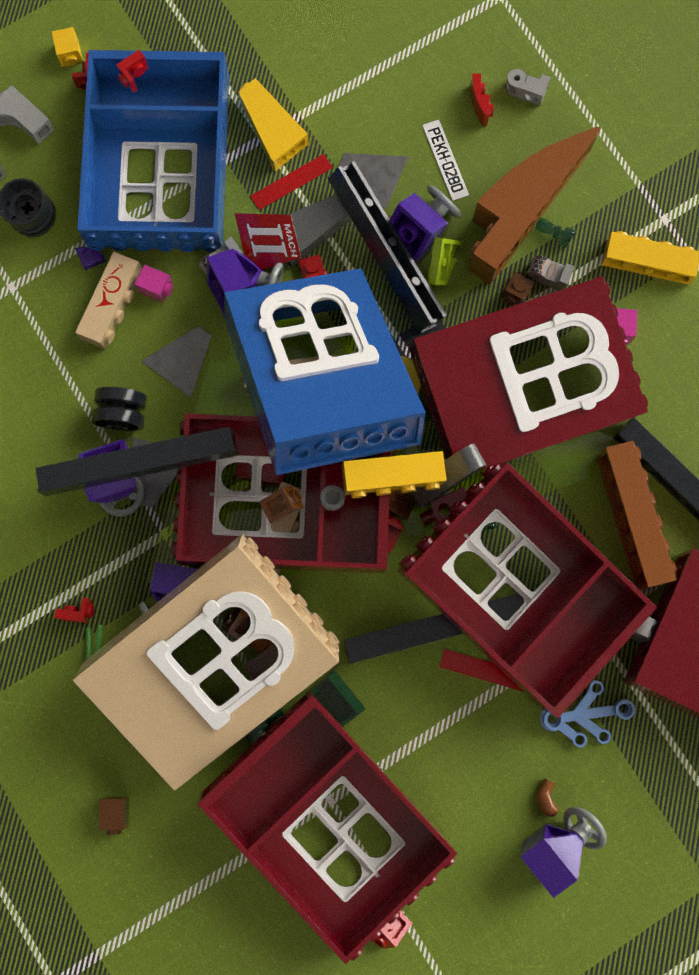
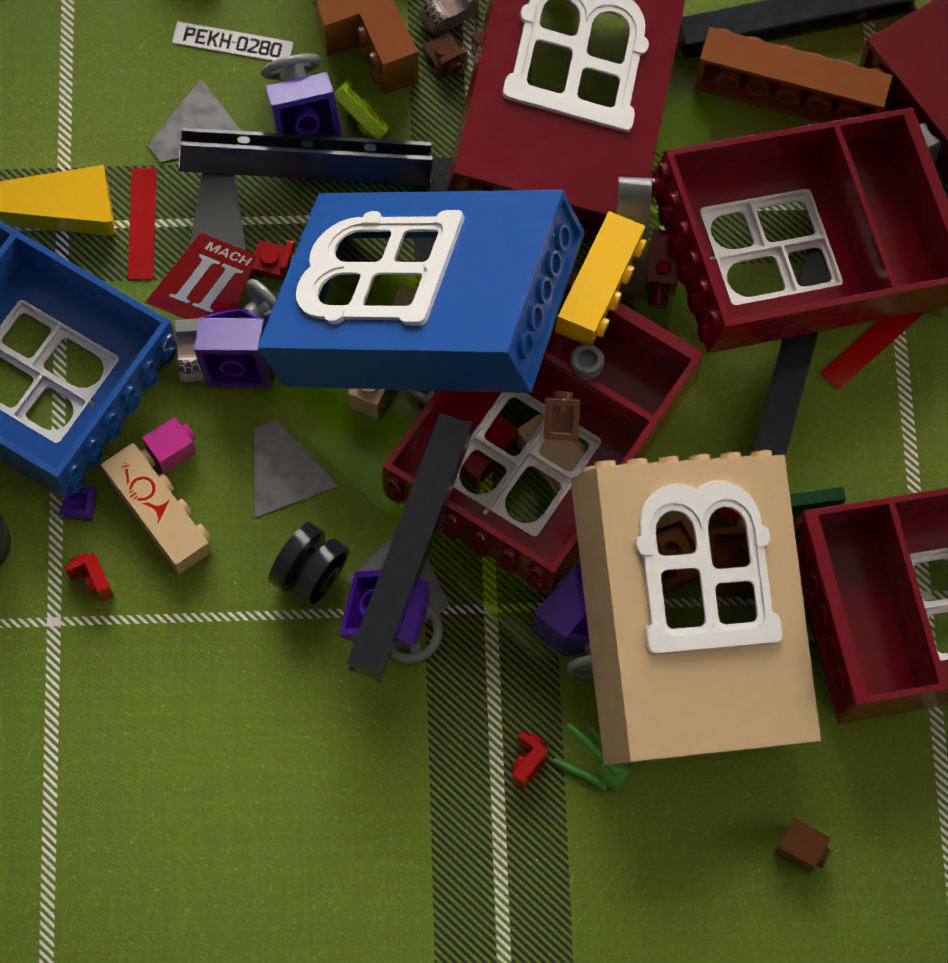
camera: 60 degrees left, 10 degrees down
(47, 294) = (91, 570): none -> red bracket

